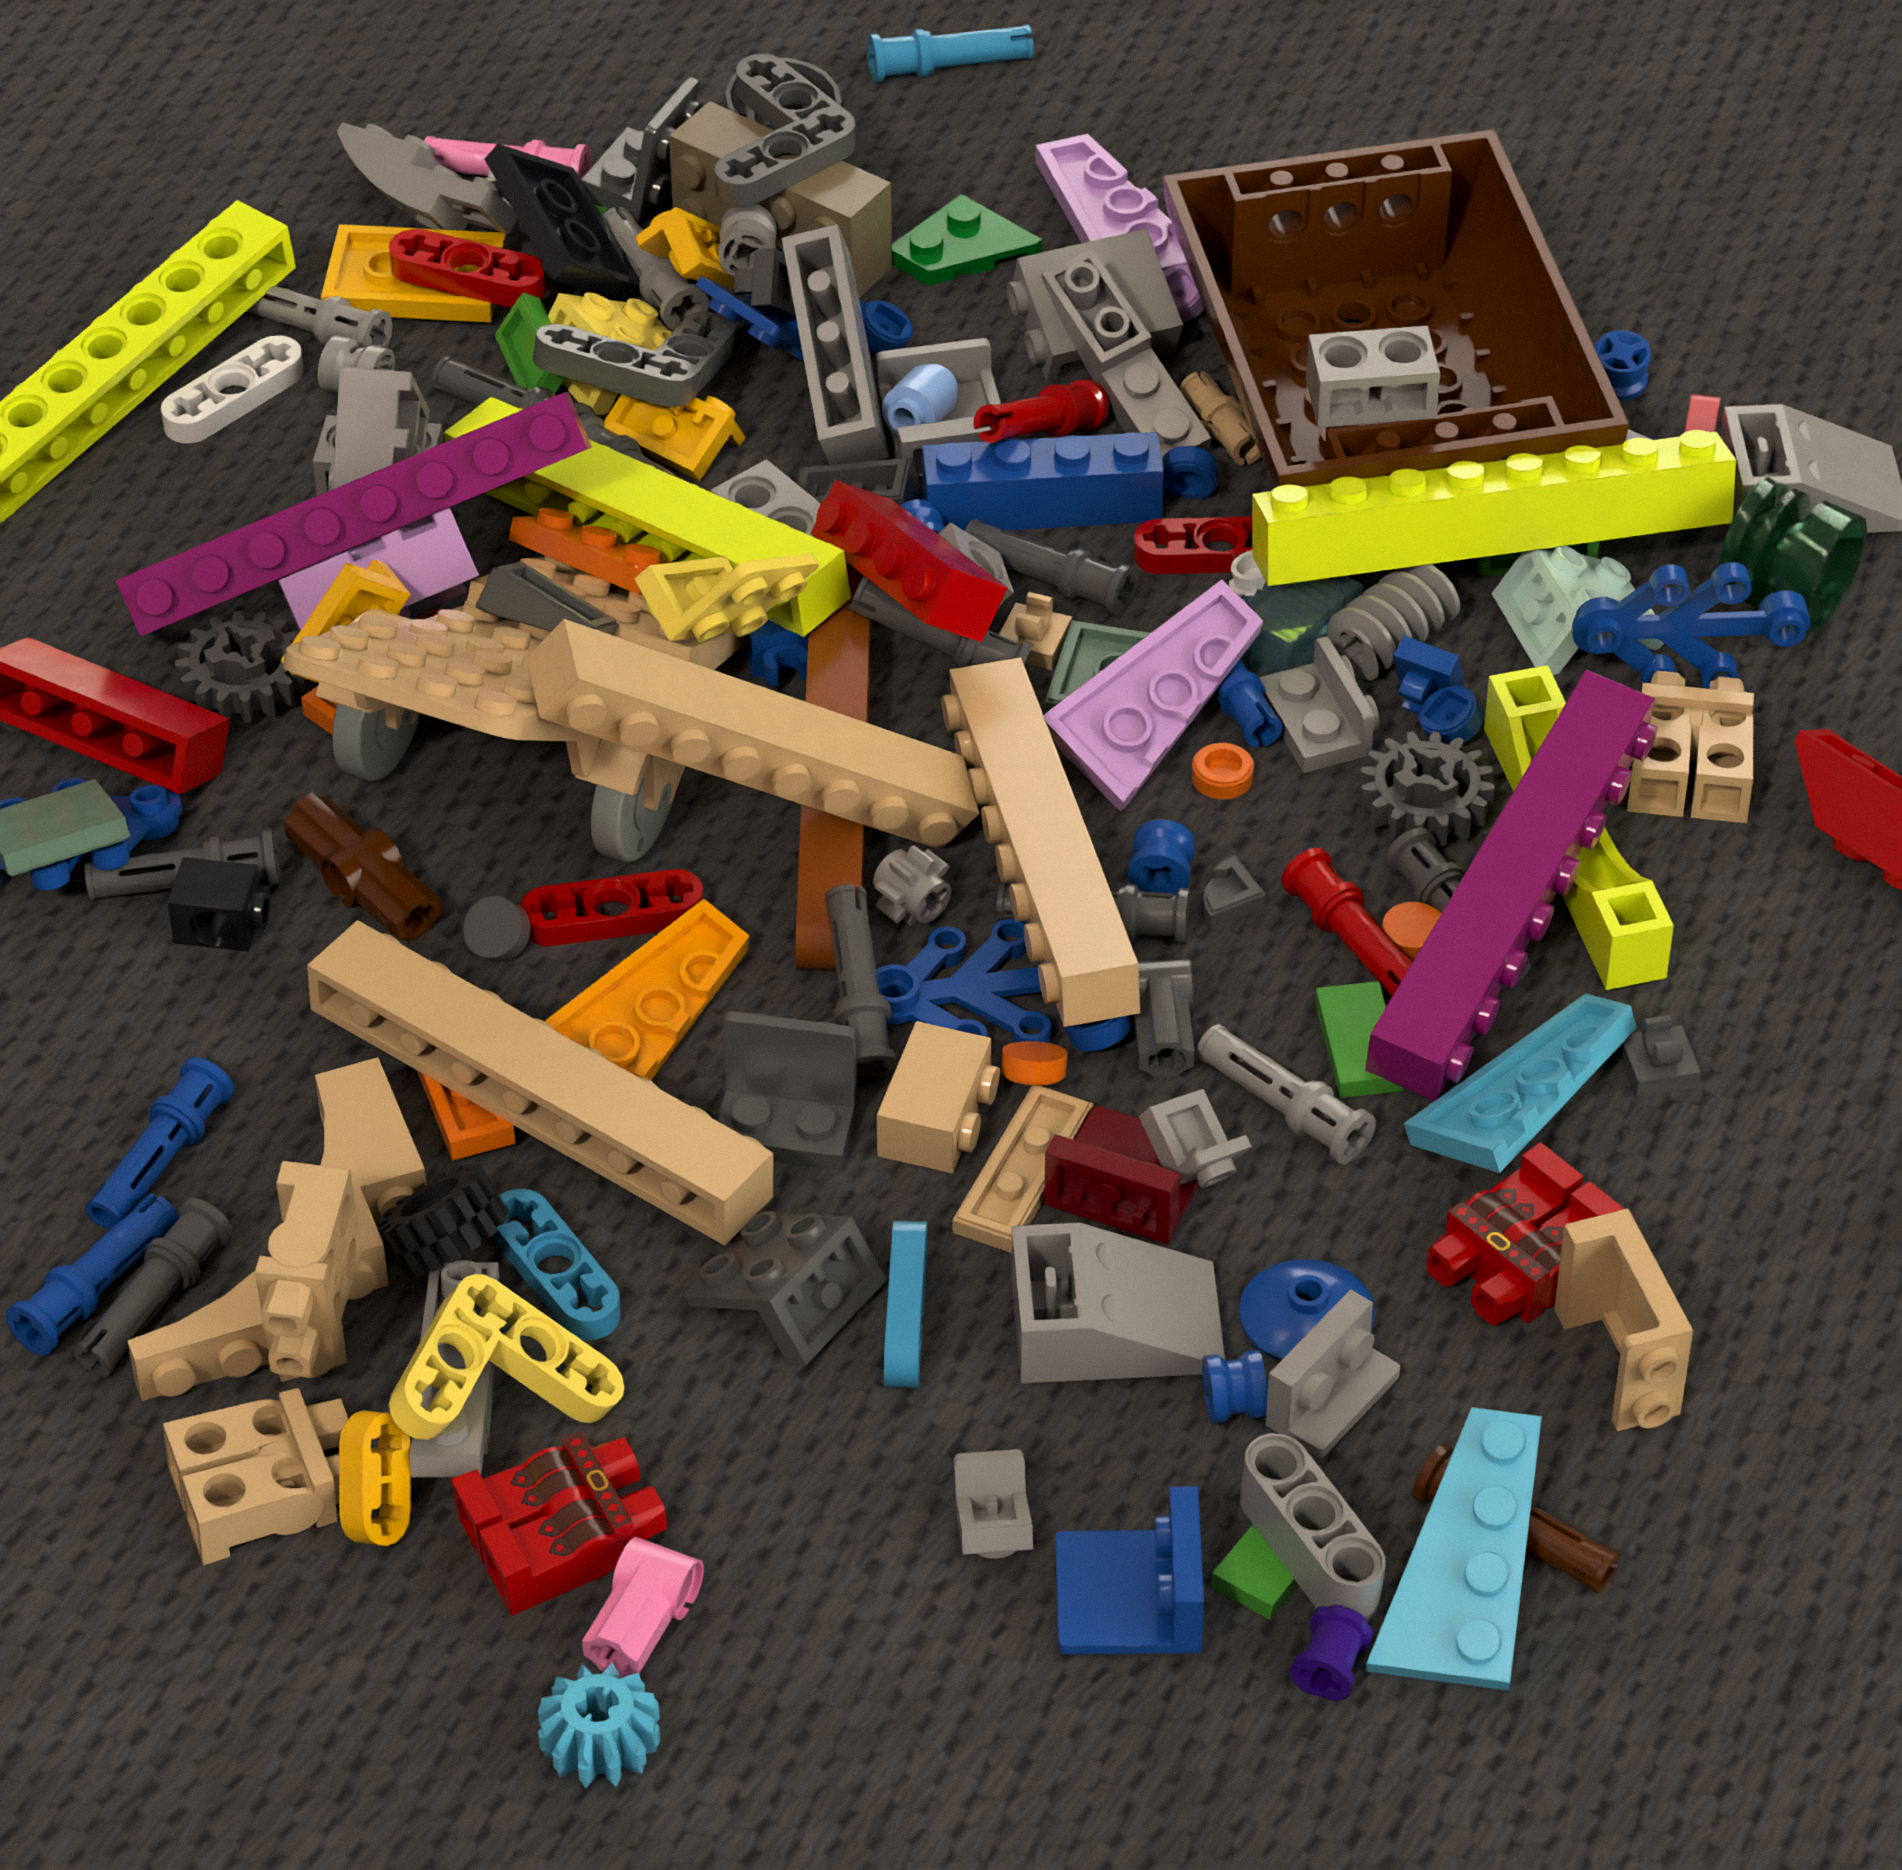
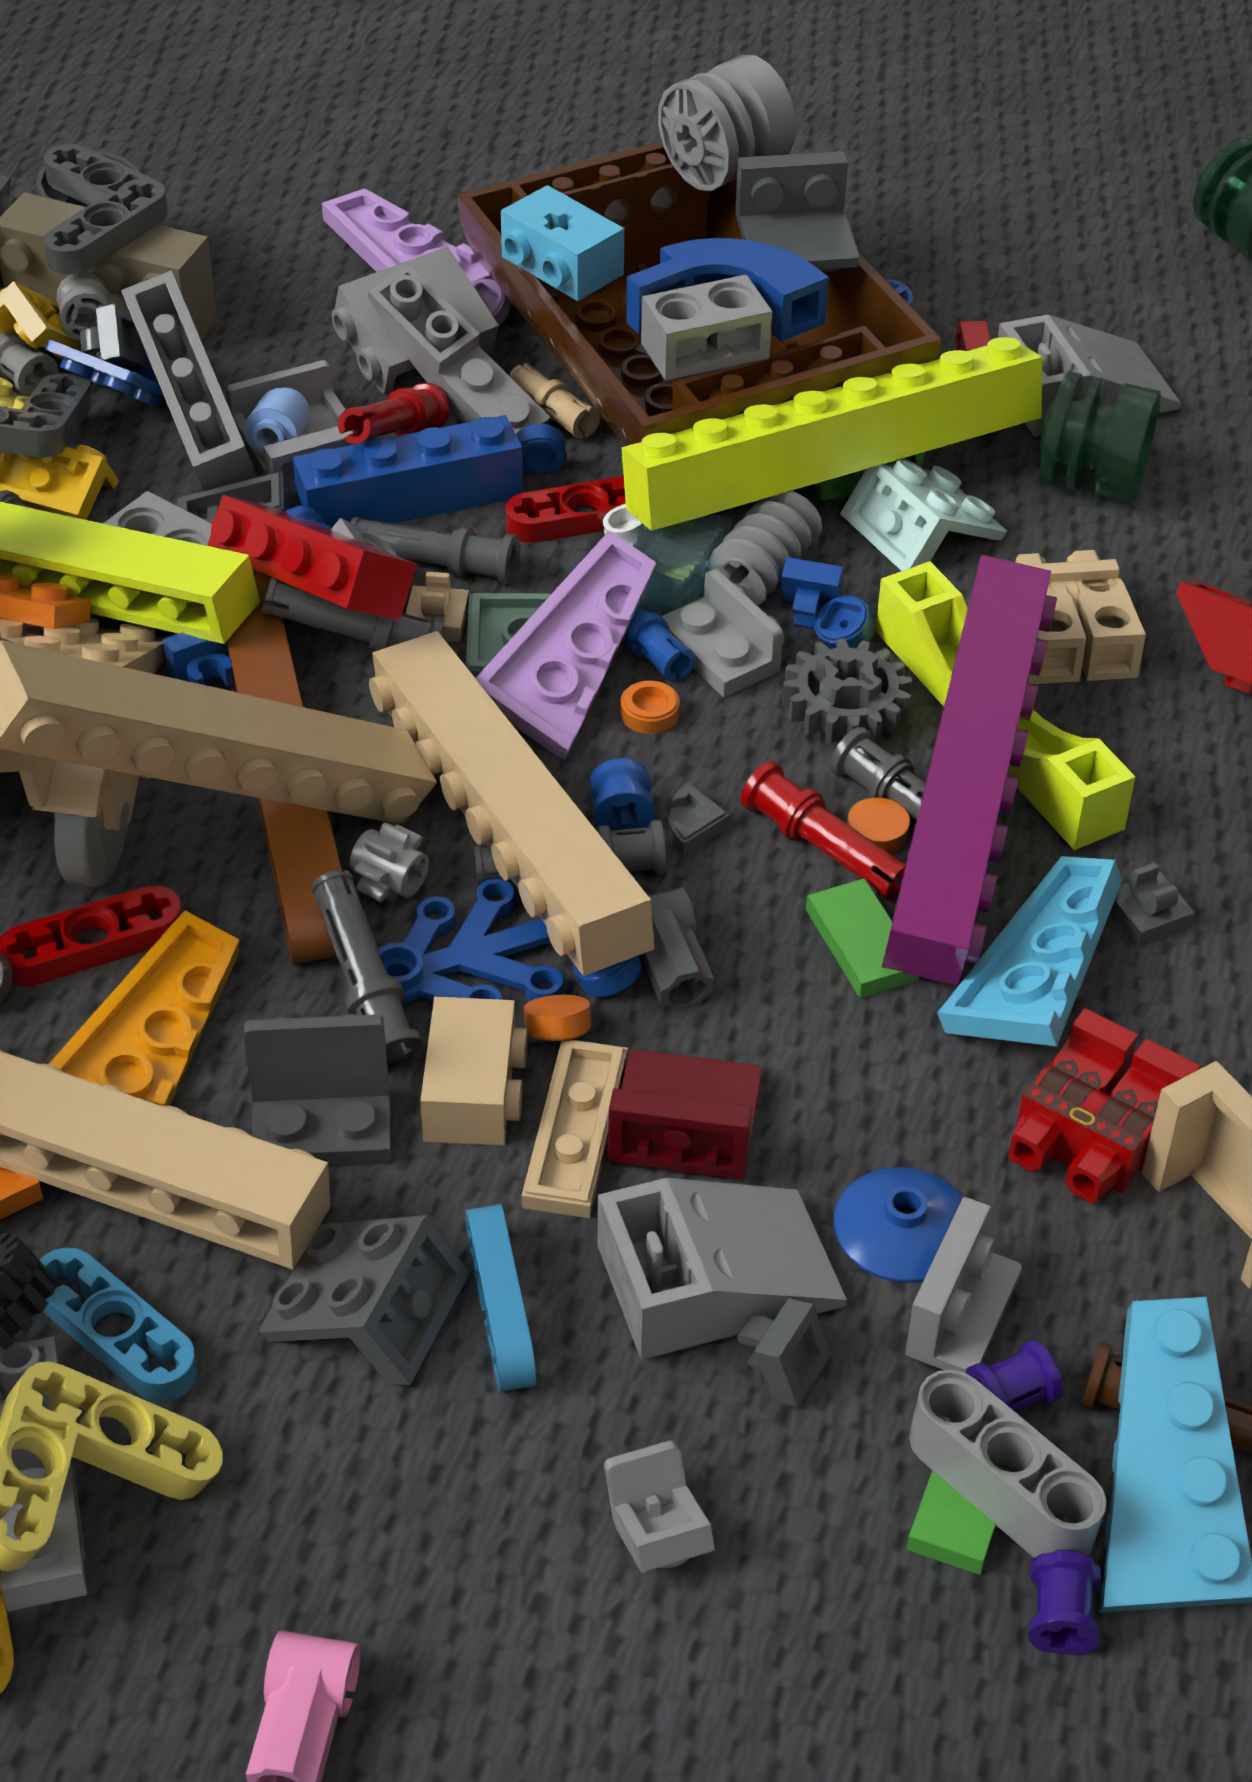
camera: 15 degrees left, 0 degrees up
(556, 1518) = (181, 1626): red hips -> none
(714, 599) = (127, 620): light yellow bracket -> none
(886, 326) = (228, 365): blue tile -> none
(923, 52) = (201, 145): dark azure pin -> none
(960, 241) = (274, 290): wing -> none
(1133, 1585) = (835, 1568): blue bracket -> none
(1155, 1398) = (787, 1350): none -> dark grey tile
(1192, 1140) = (743, 1067): light grey bracket -> none
(1234, 1386) = (866, 1320): blue wheel -> none
(1251, 255) = (562, 242): none -> medium azure brick
(1303, 1103) = (842, 1010): light grey pin -> none
(1357, 1463) = (1022, 1377): none -> dark purple bush
(1467, 338) = (786, 281): none -> blue arch
(1468, 139) = (724, 116): none -> light grey wheel
(1512, 258) = (798, 206): none -> dark grey bracket
(1615, 626) = (972, 519): blue plant -> none

